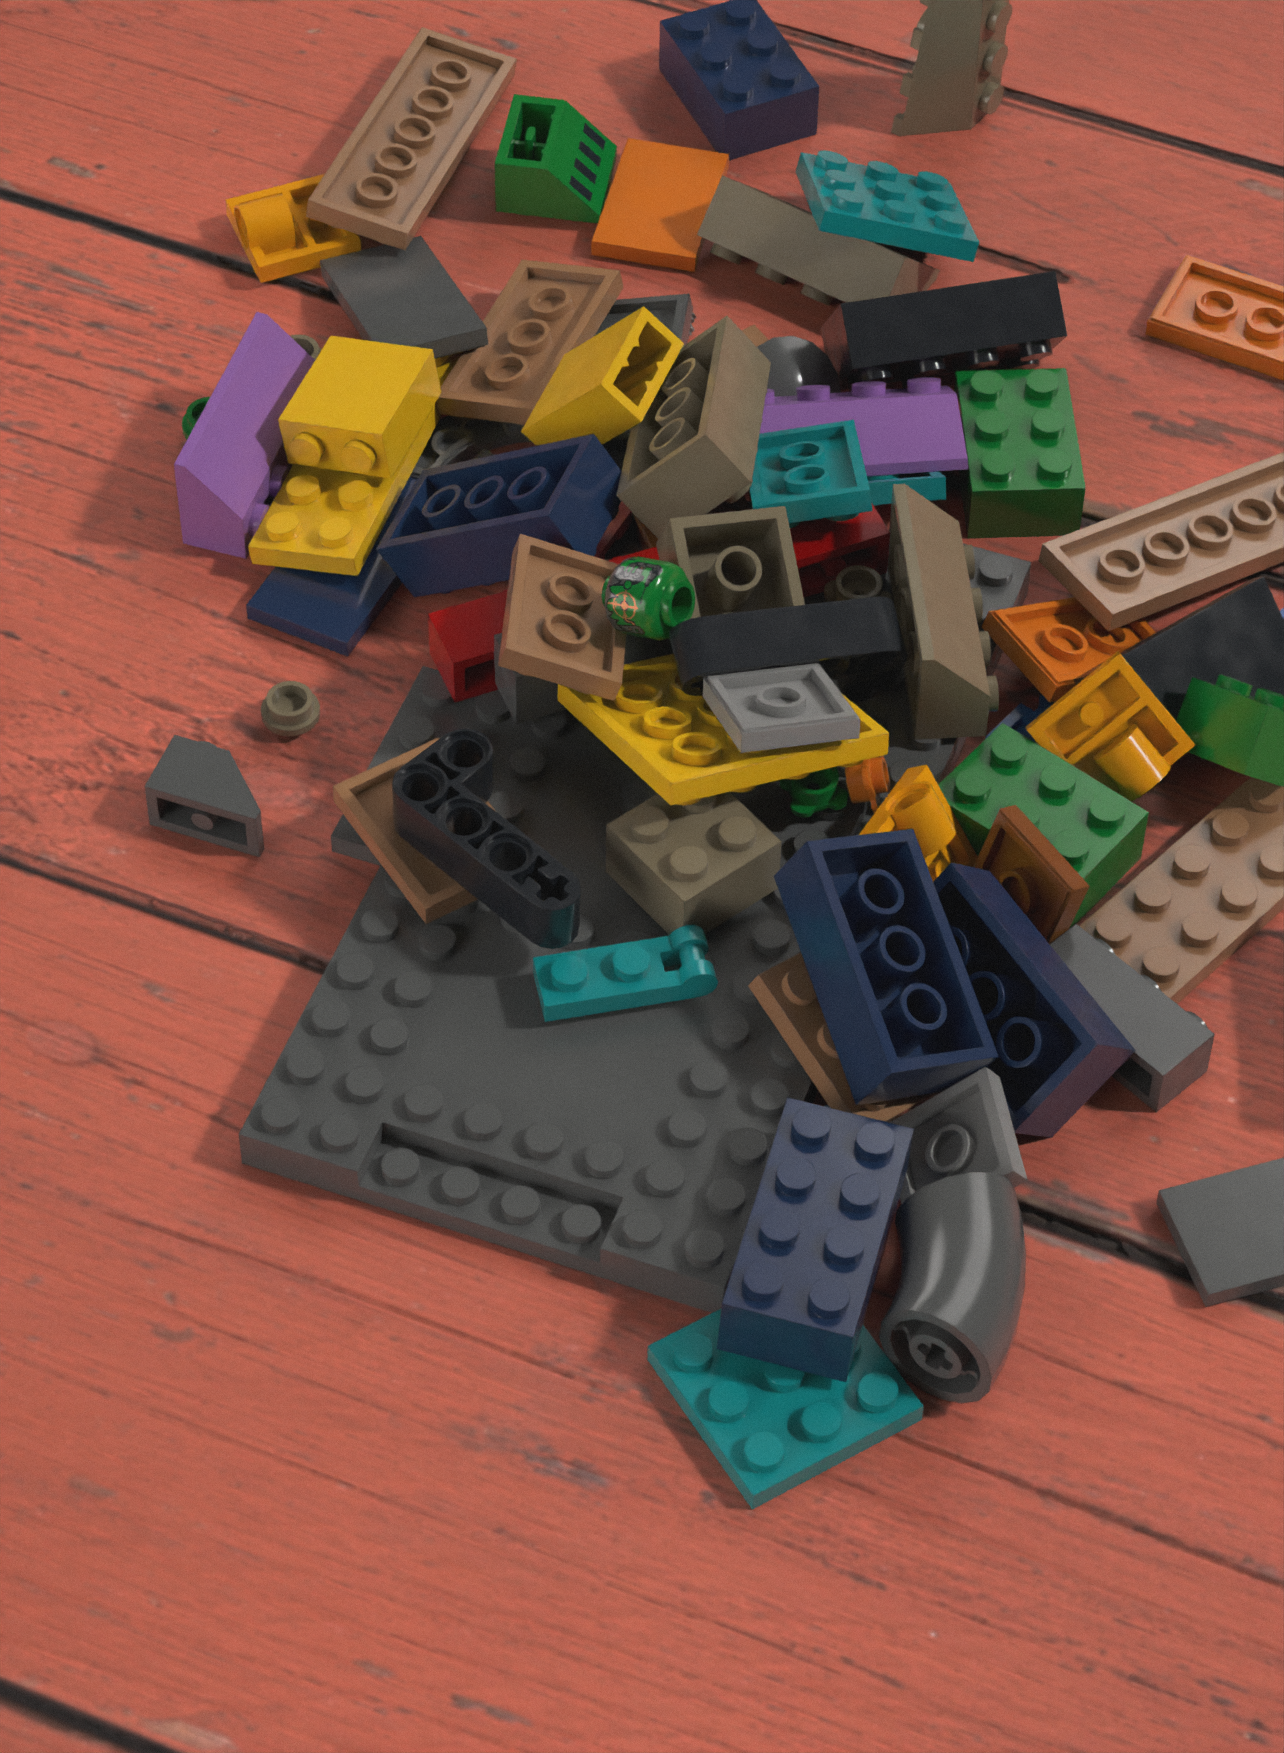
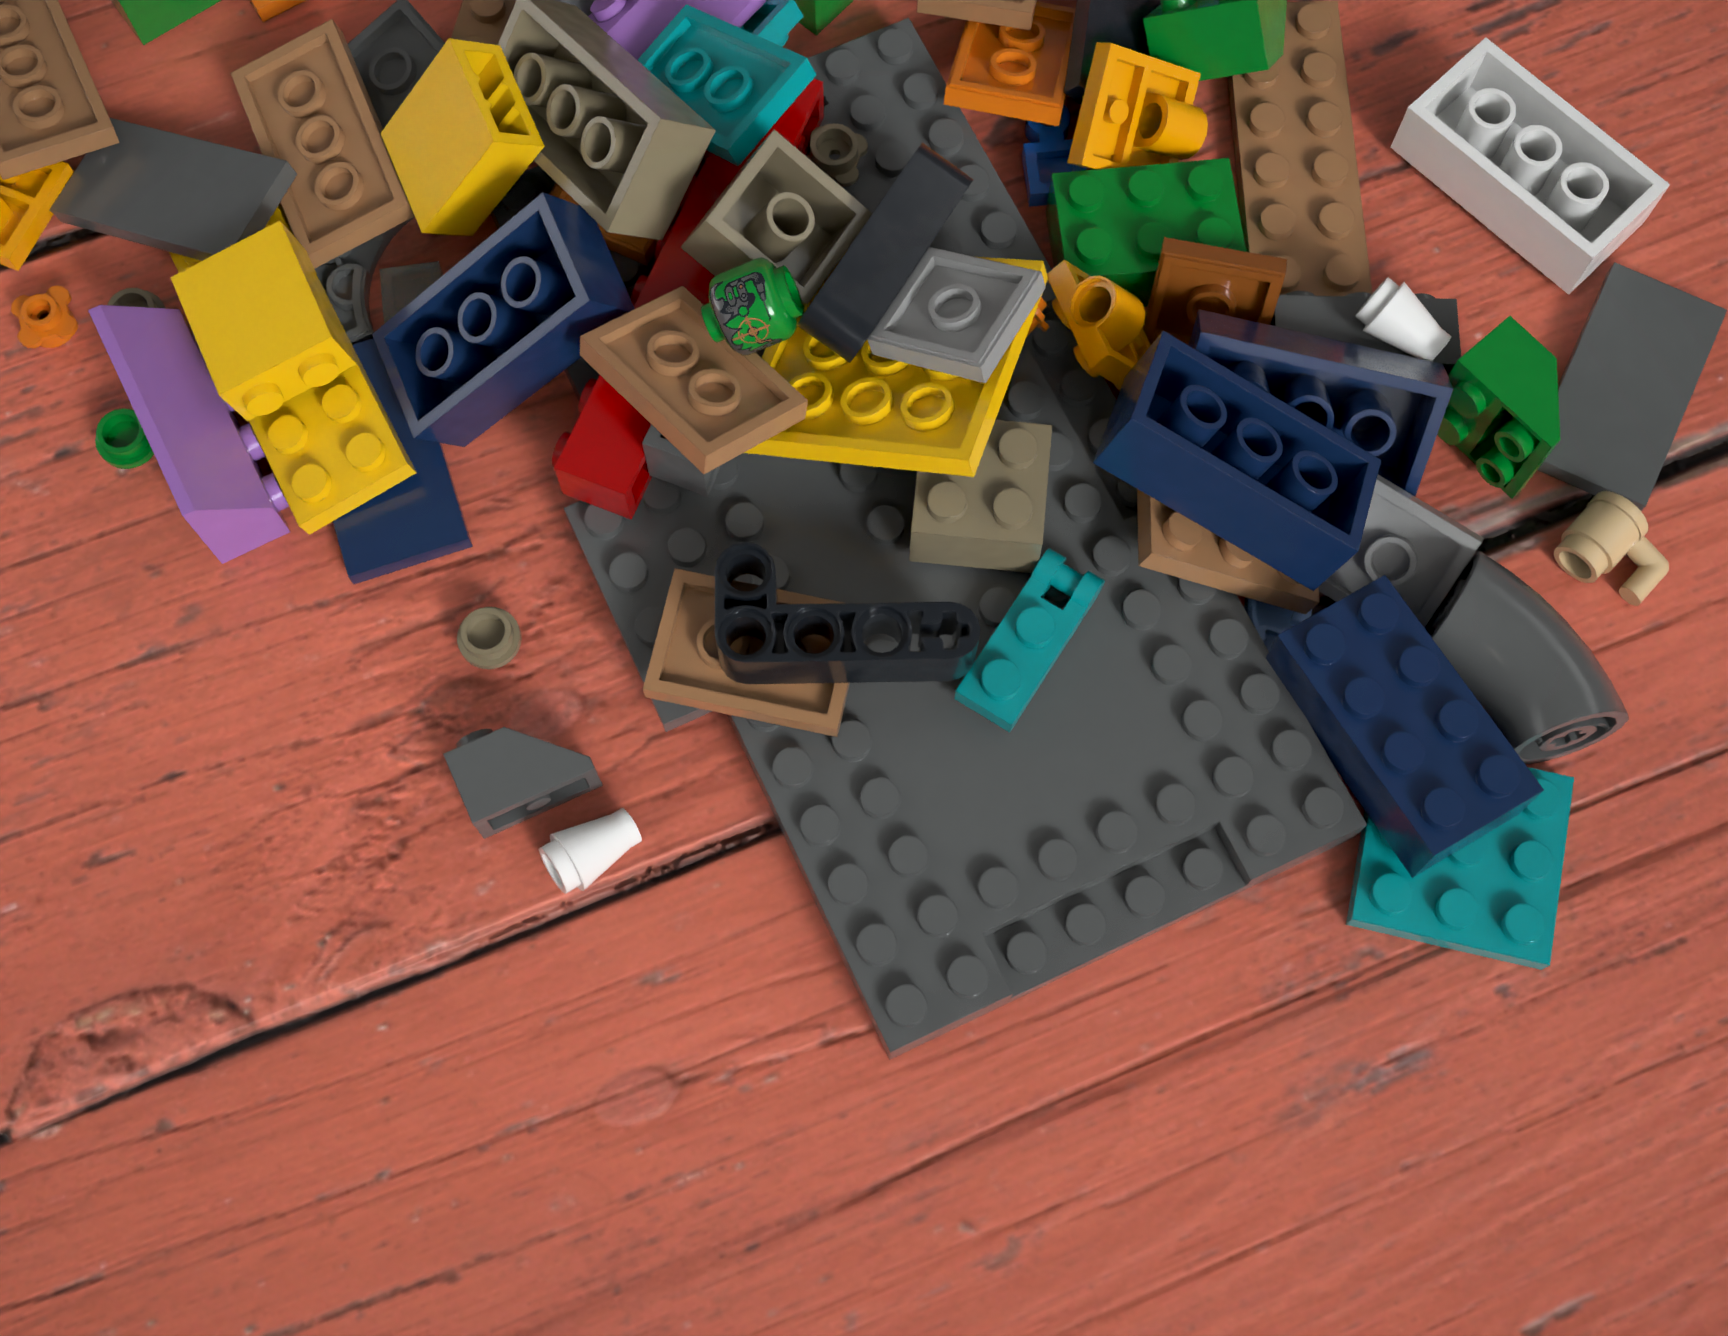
camera: 45 degrees left, 20 degrees up
(201, 874) = (587, 850): none -> white cone
(237, 317) = (50, 331): none -> orange plate
(939, 620) = (901, 106): dark tan slope -> none
(1139, 998) = (1402, 321): none -> white cone
(1145, 1283) = (1602, 537): none -> tan piece
(1157, 1120) = (1504, 406): none -> green slope

